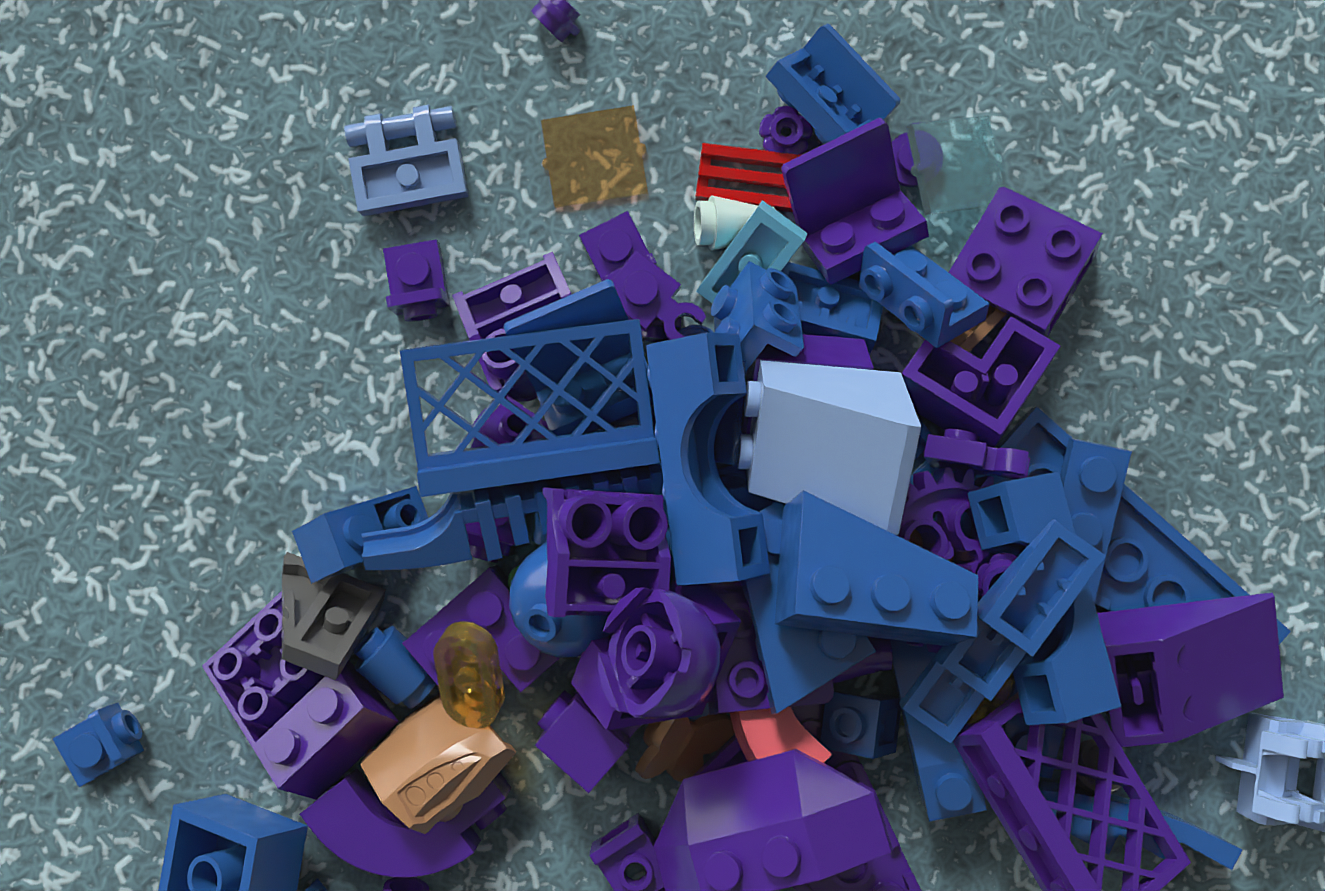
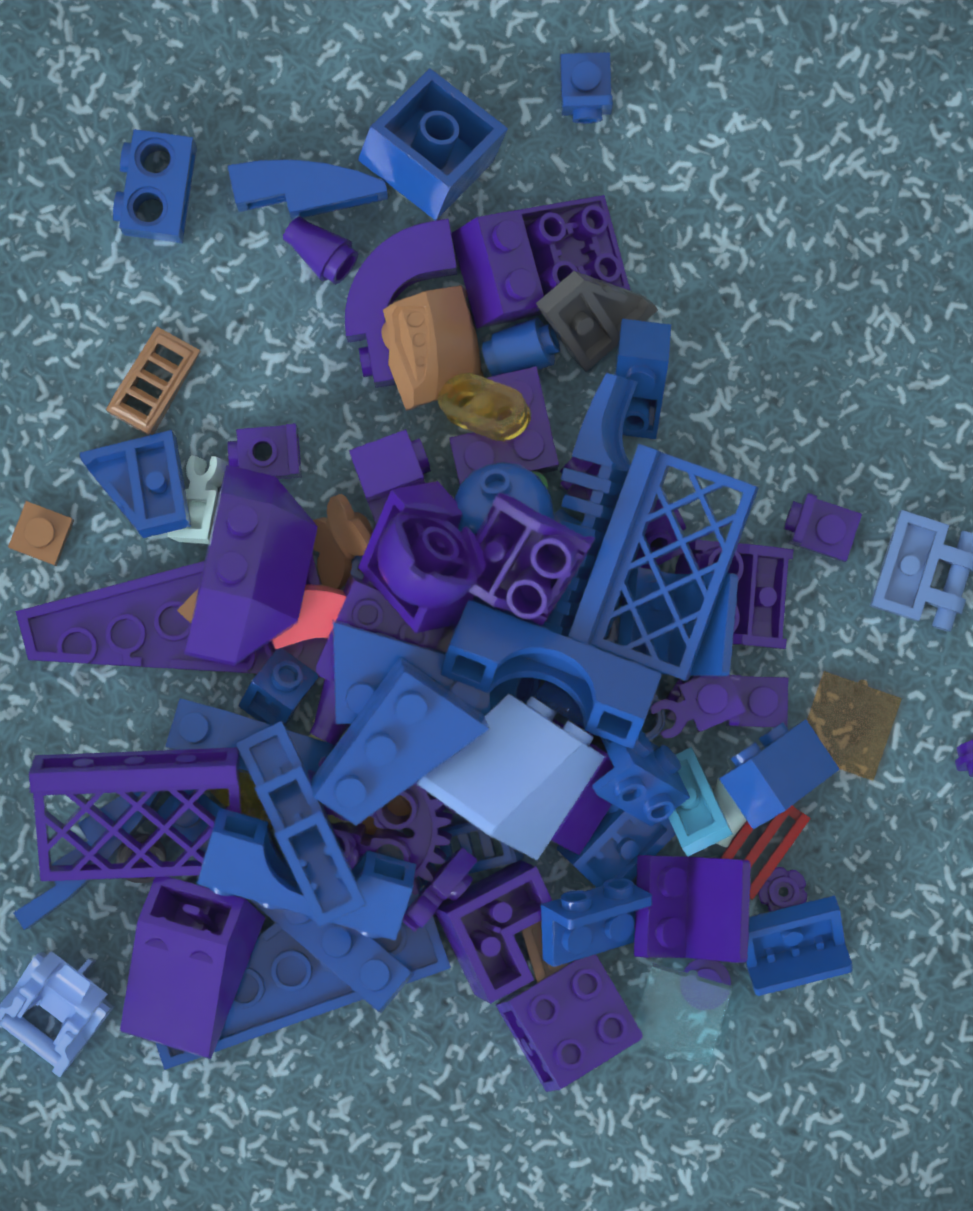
camera: 115 degrees right, 0 degrees up
(679, 189) = (778, 773): none -> blue brick

